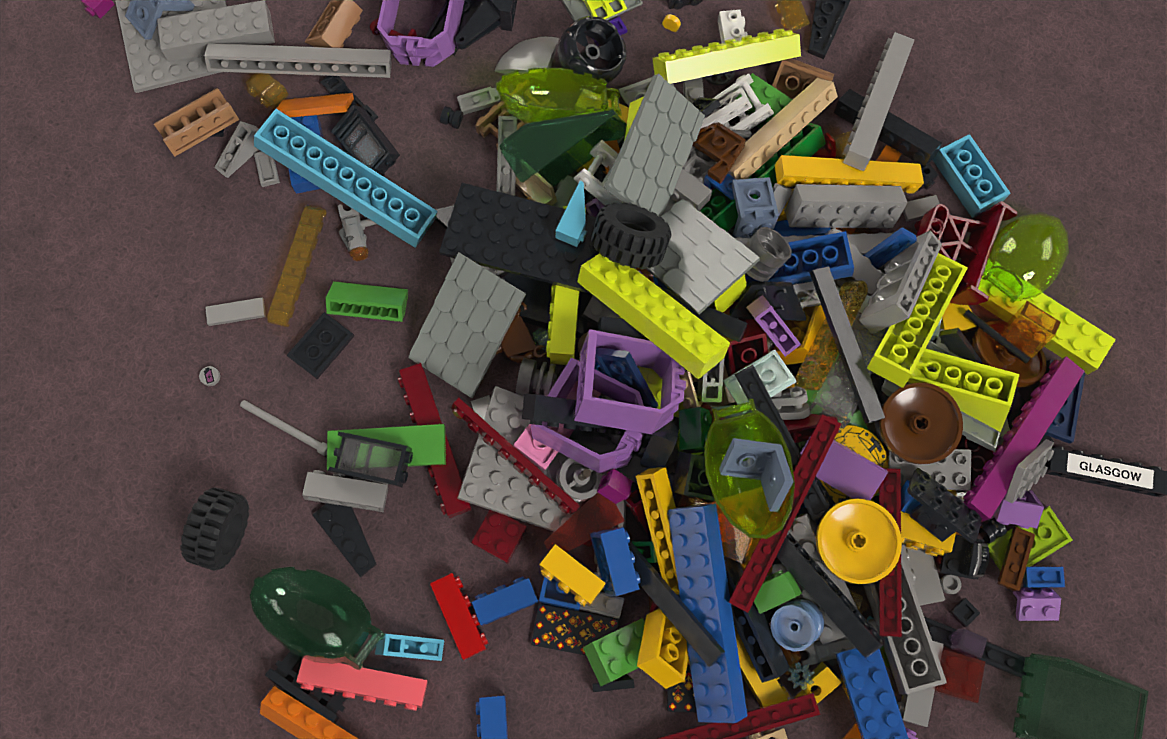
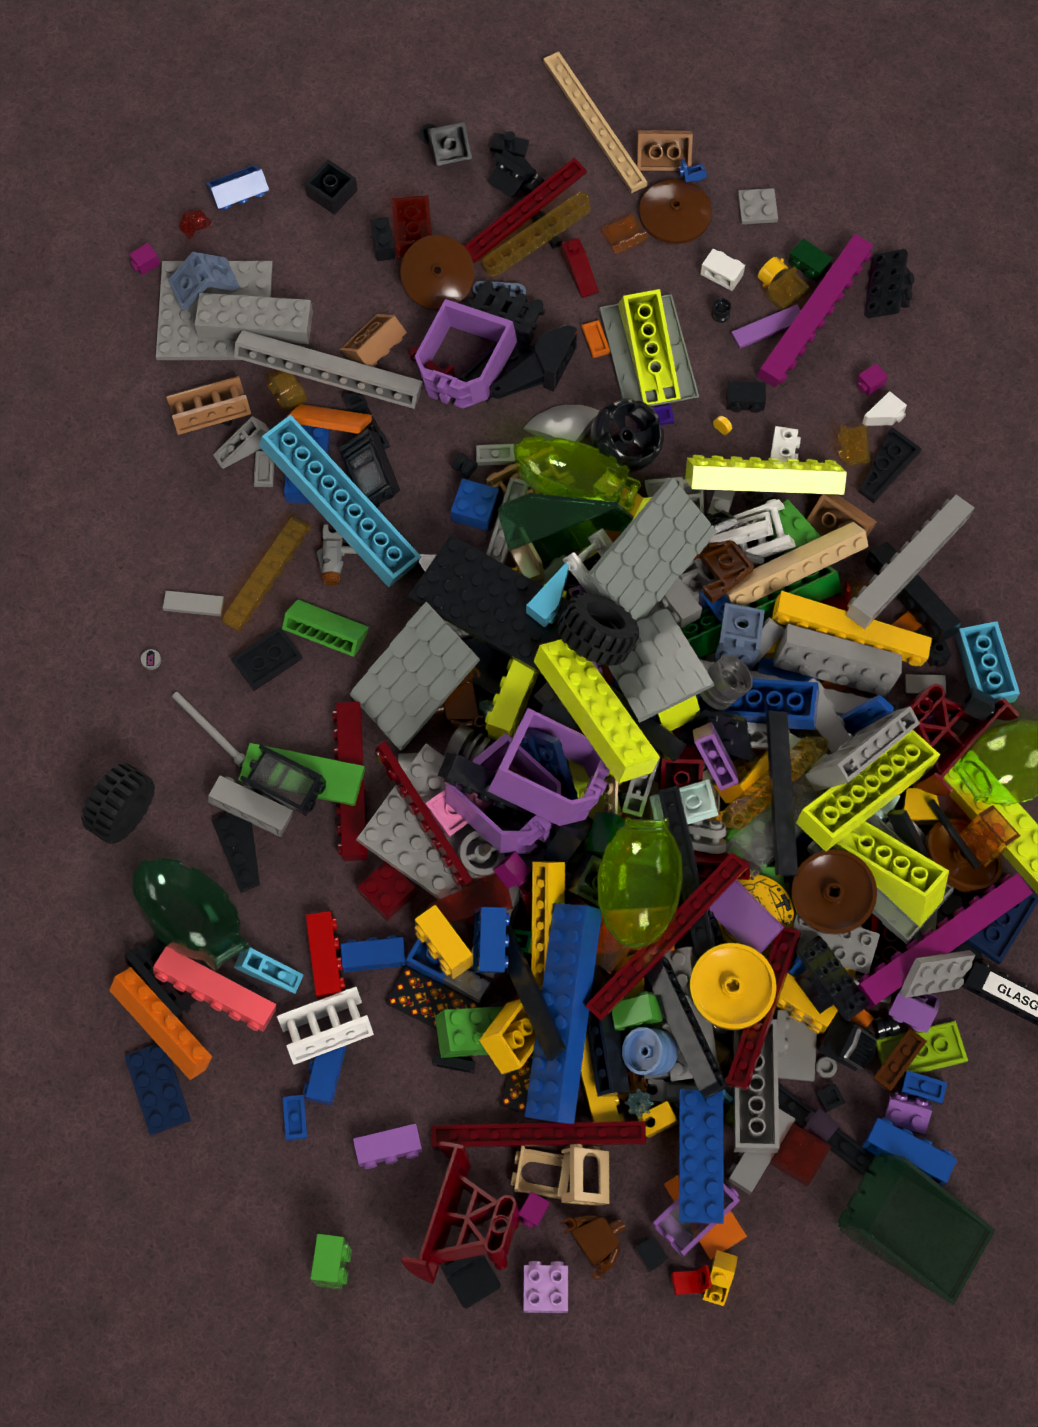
camera: 20 degrees right, 5 degrees down
(472, 150) = (474, 504): none -> blue brick
(489, 702) = (332, 1038): none -> white fence
(765, 464) = (656, 882): sand blue bracket -> none
(980, 213) = (978, 704): none -> black brick
(1046, 640) = (891, 1140): none -> blue brick

